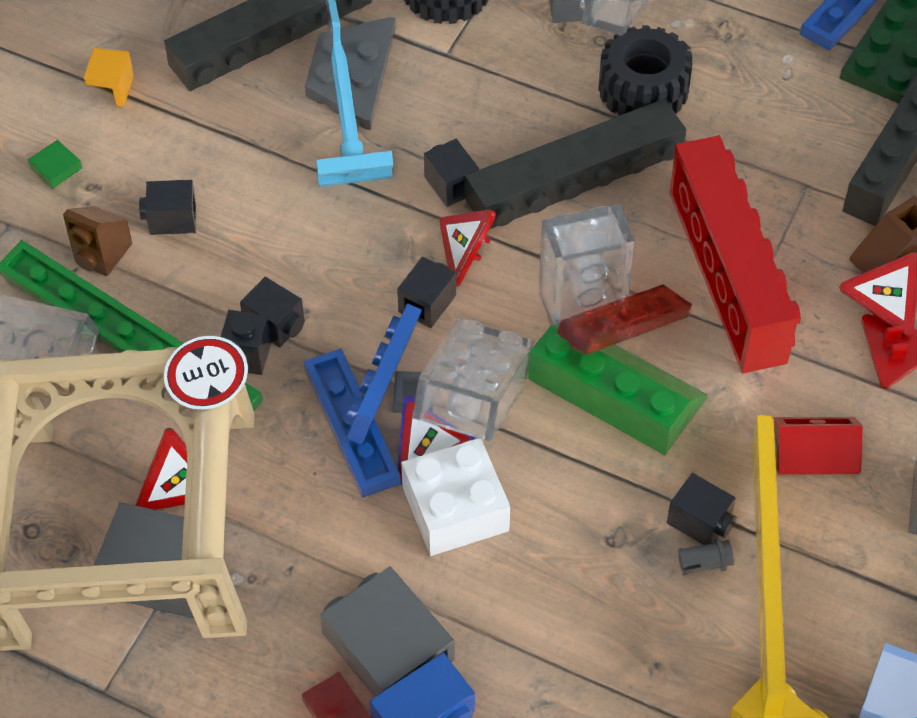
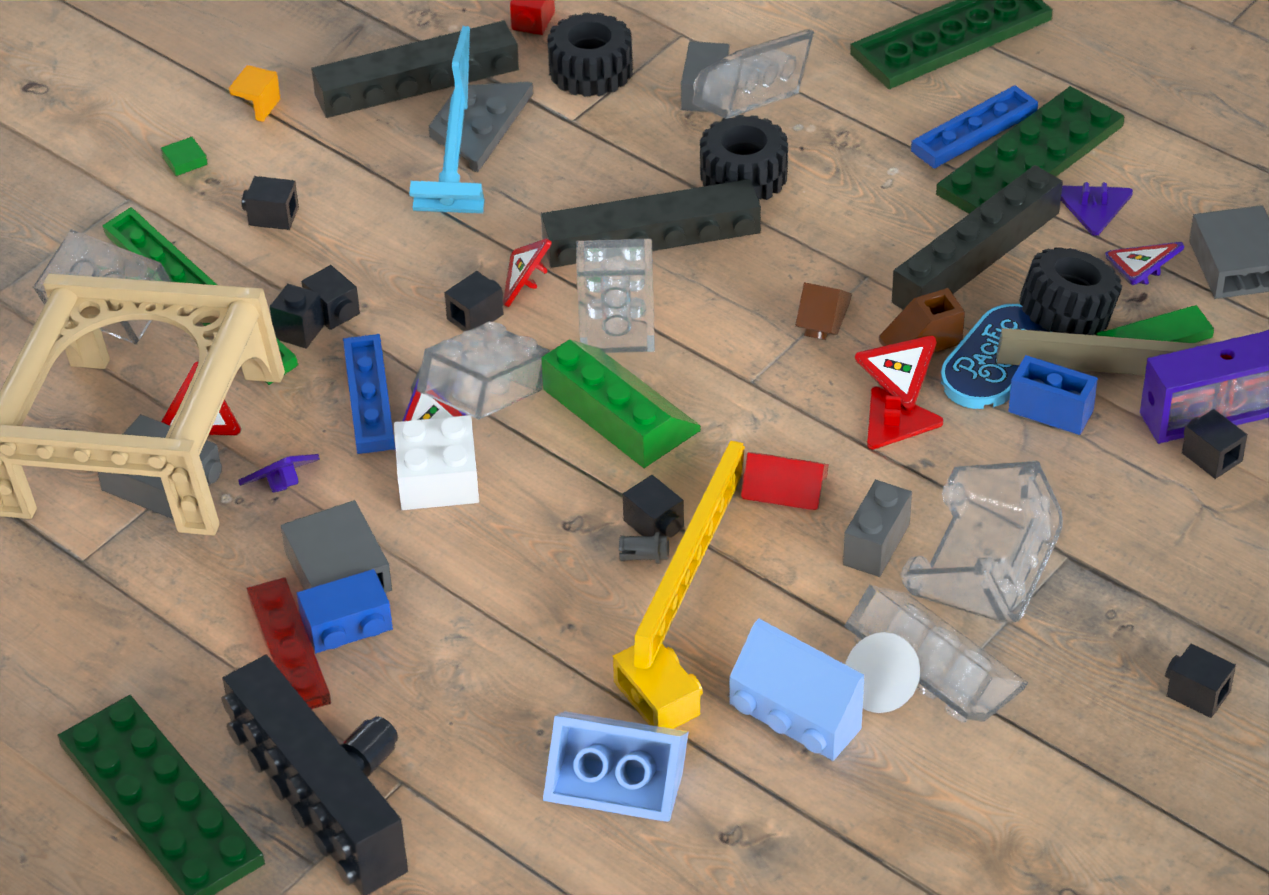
camera: 15 degrees right, 10 degrees down
(97, 238) = (196, 214): reddish brown slope -> none
(205, 372) = (232, 305): sticker -> none
(291, 540) = (280, 473): none -> dark purple piece
(376, 383) = (407, 356): blue plate -> none
(446, 170) = (527, 208): black brick -> none
(623, 319) = (638, 346): clear red plate -> none
(733, 254) = (763, 312): red brick -> none
(789, 235) = (822, 310): none -> reddish brown slope

